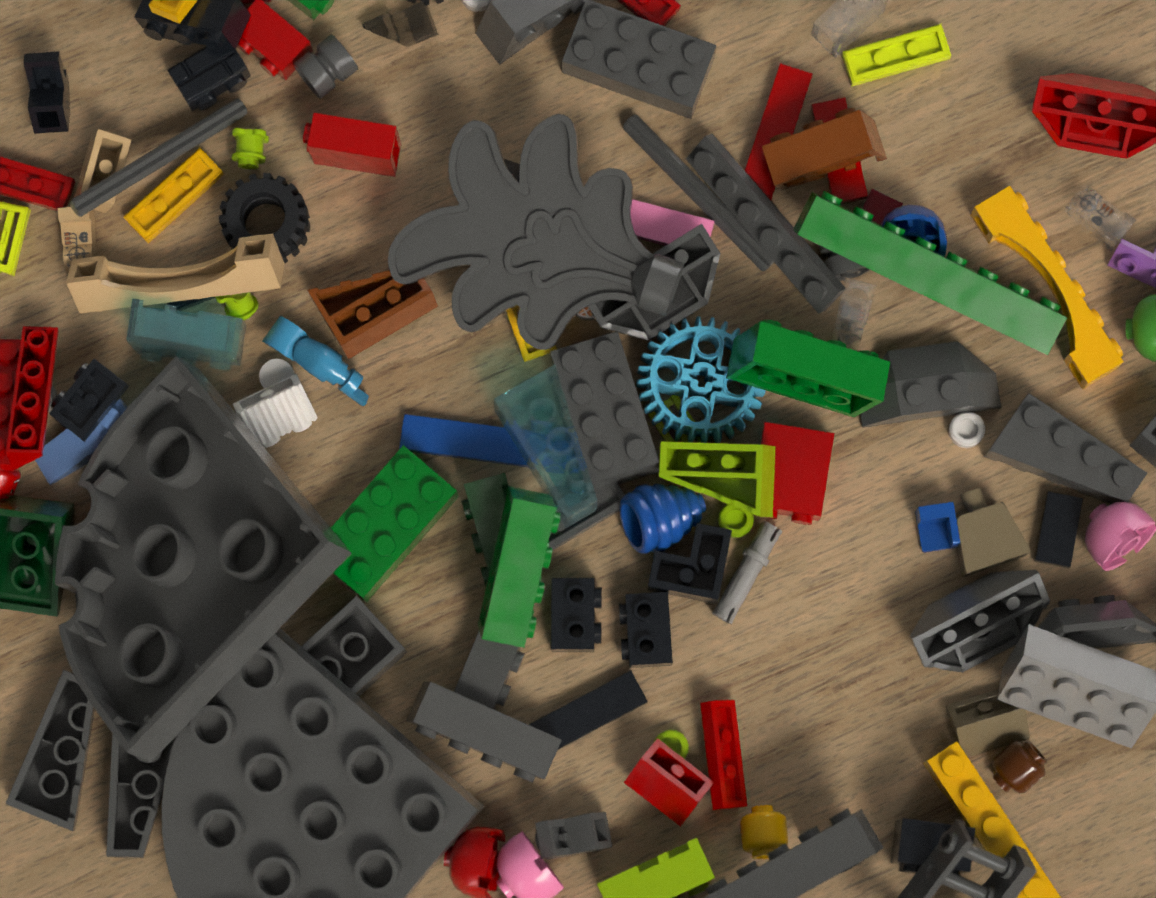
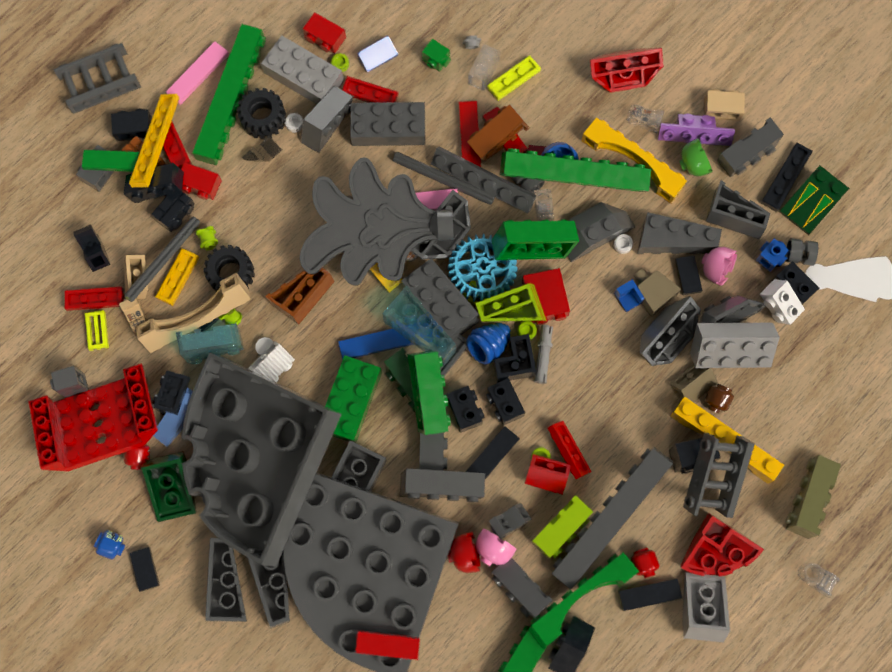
camera: 25 degrees left, 5 degrees down
(315, 358) = (282, 329): dark azure piece -> none
(325, 66) = (231, 184): dark grey wheel -> none
(353, 144) = (260, 216): red brick -> none
(763, 831) = (605, 481): yellow head -> none

